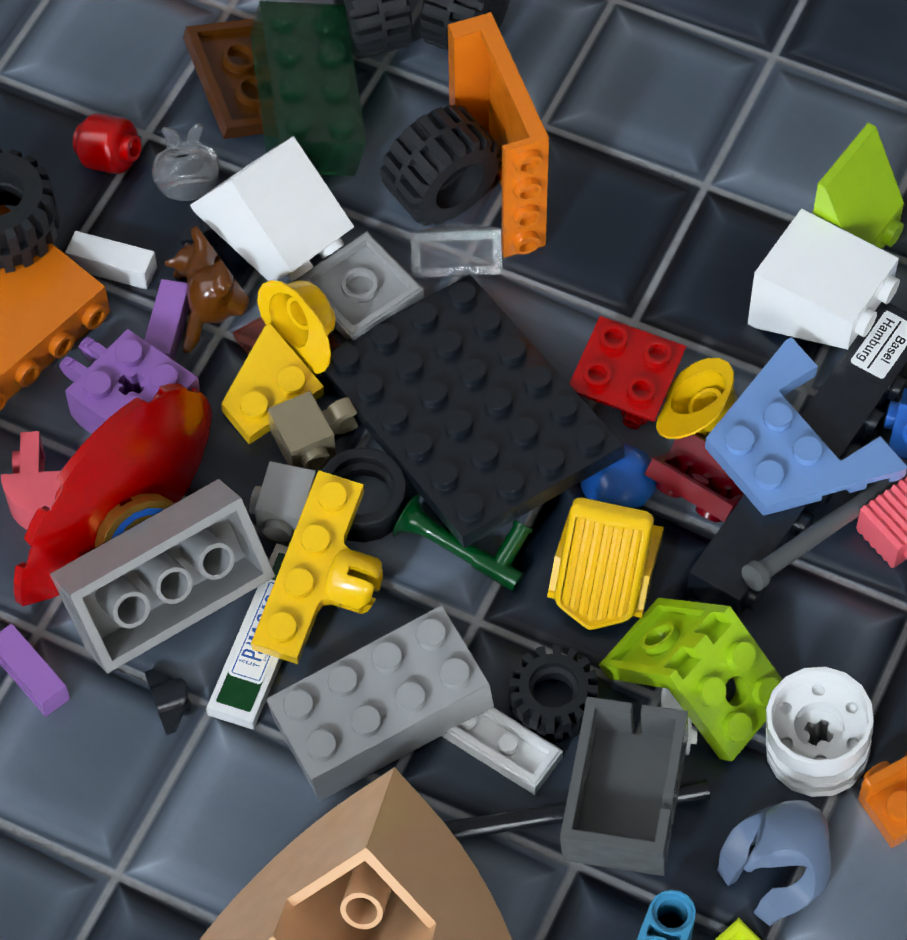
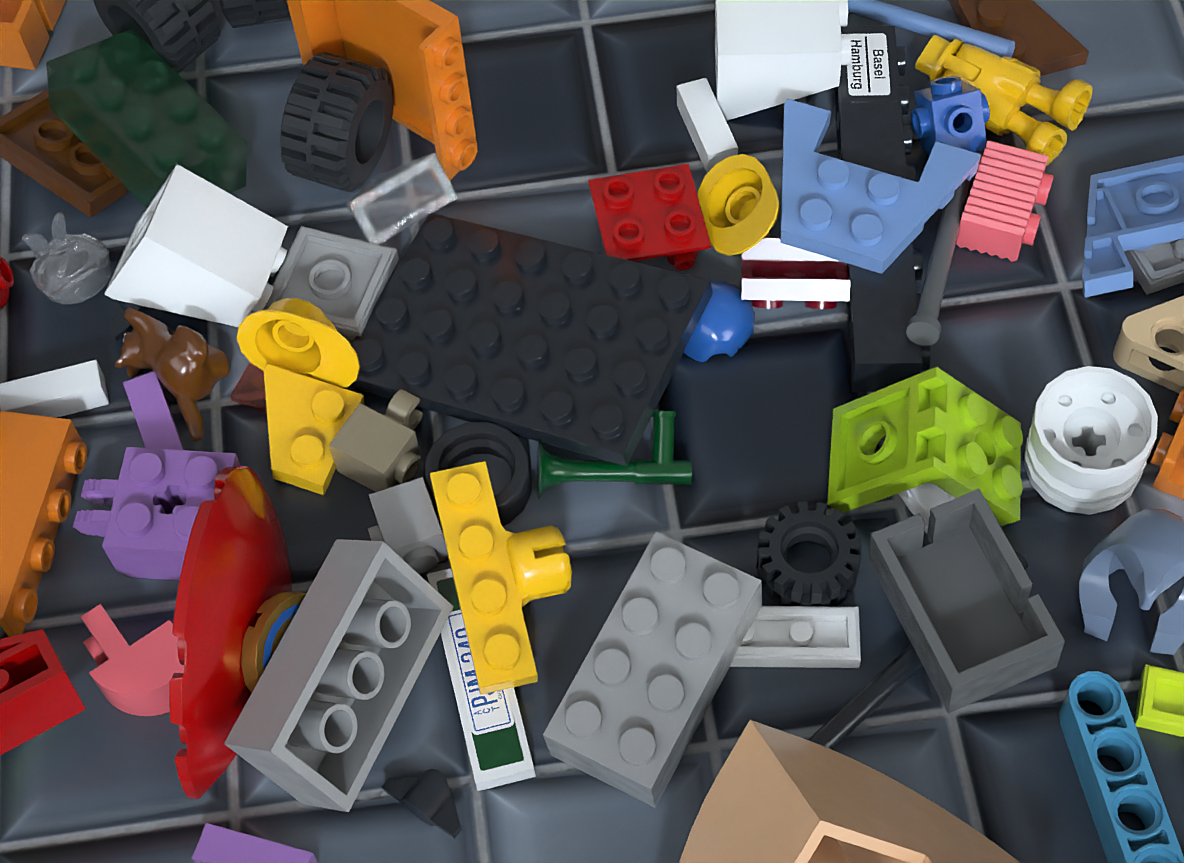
camera: 30 degrees left, 0 degrees up
(604, 563) = (764, 403): yellow piece -> none
(731, 322) = (705, 122): none -> white piece

